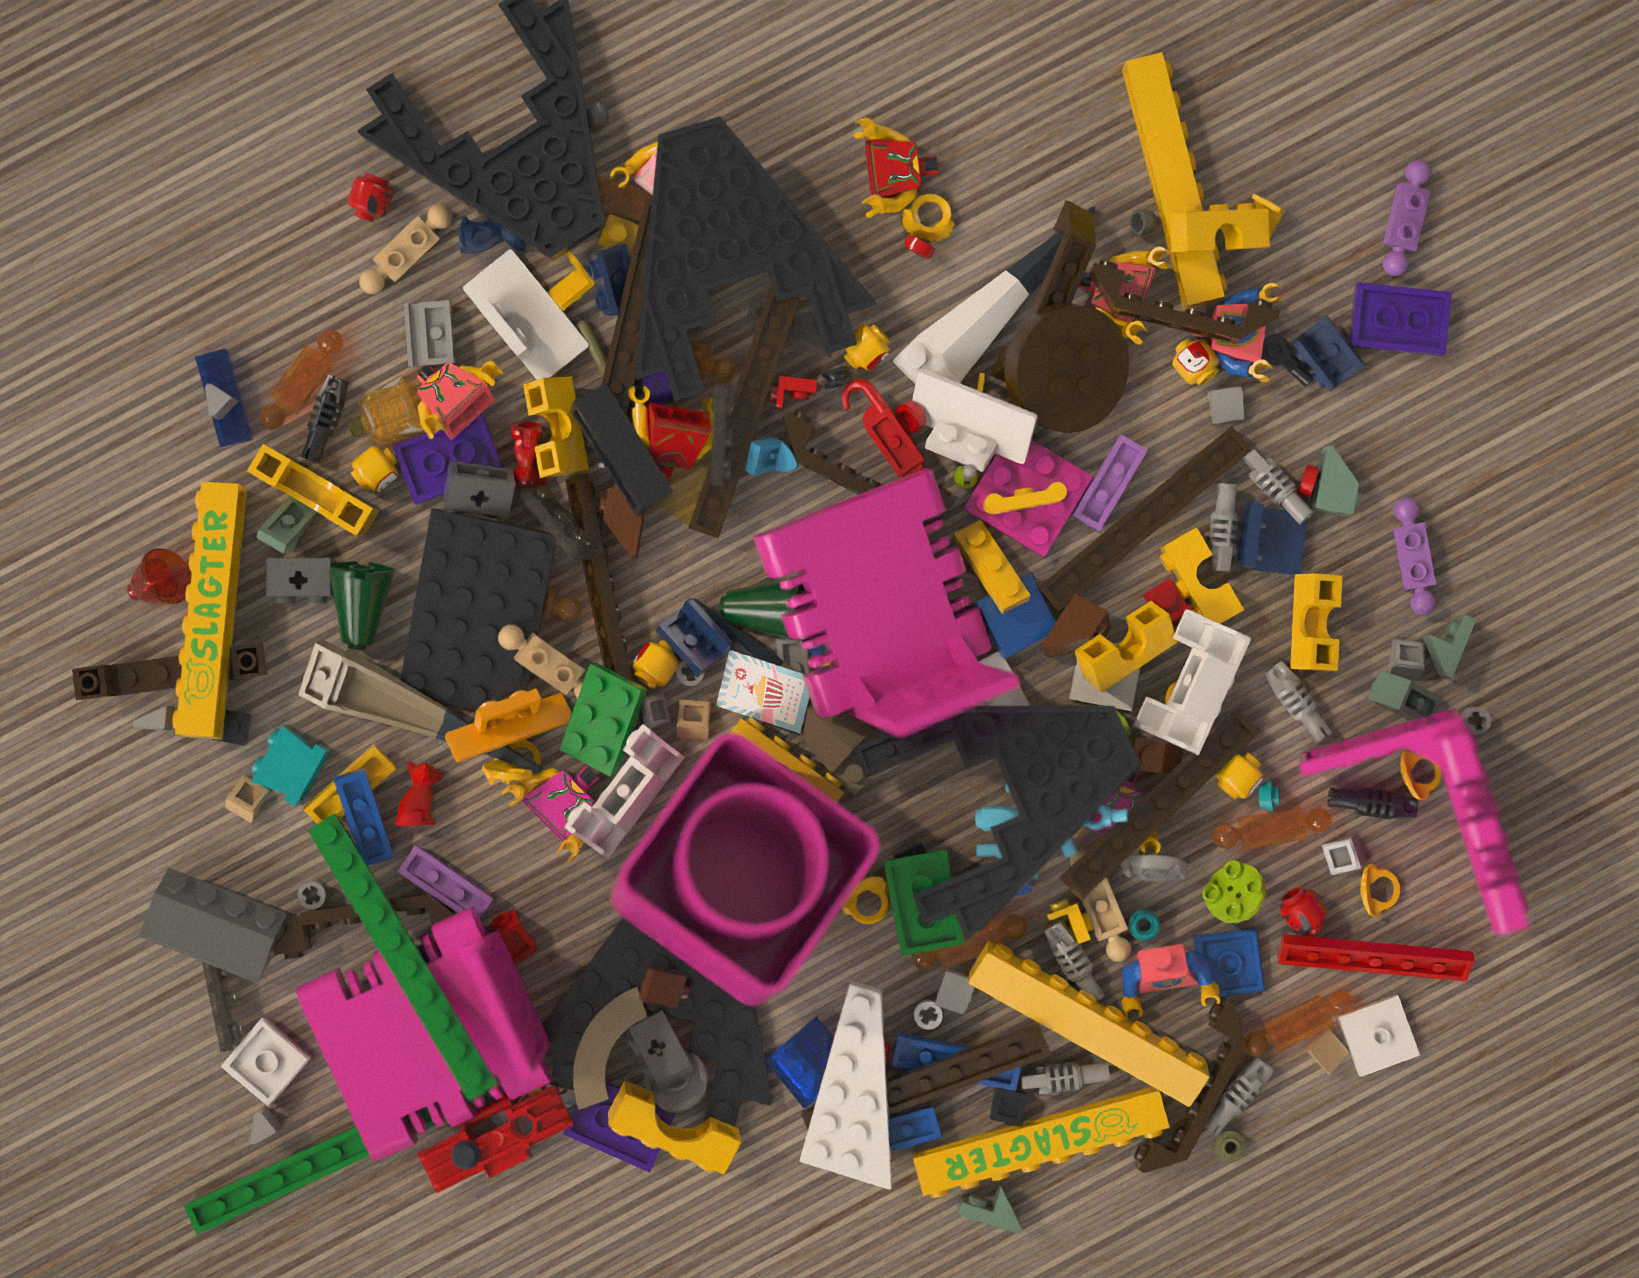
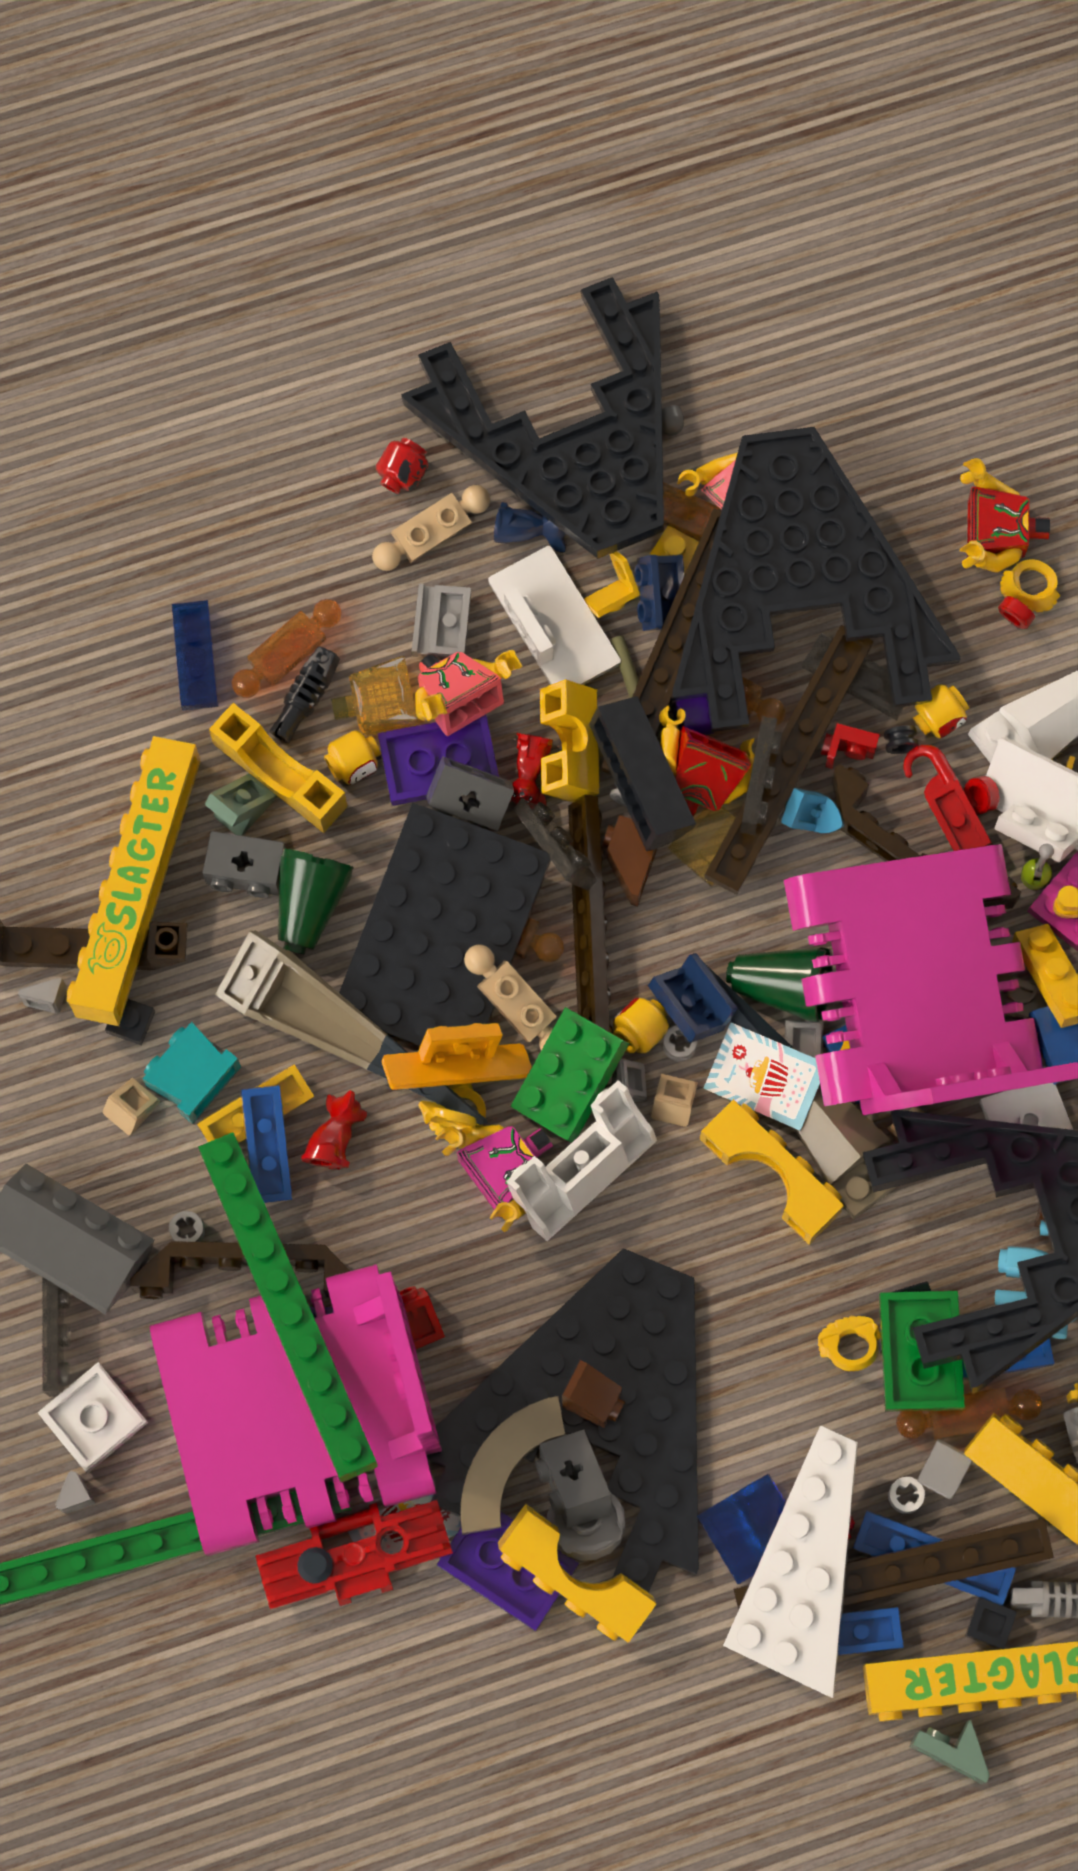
camera: 15 degrees right, 15 degrees down
(160, 578) = (81, 837): clear red hat -> none
(218, 401) = (192, 652): light grey slope -> none
(444, 882) = (343, 1235): medium lavender plate -> none
(744, 870) = (713, 1256): dark pink piece -> none

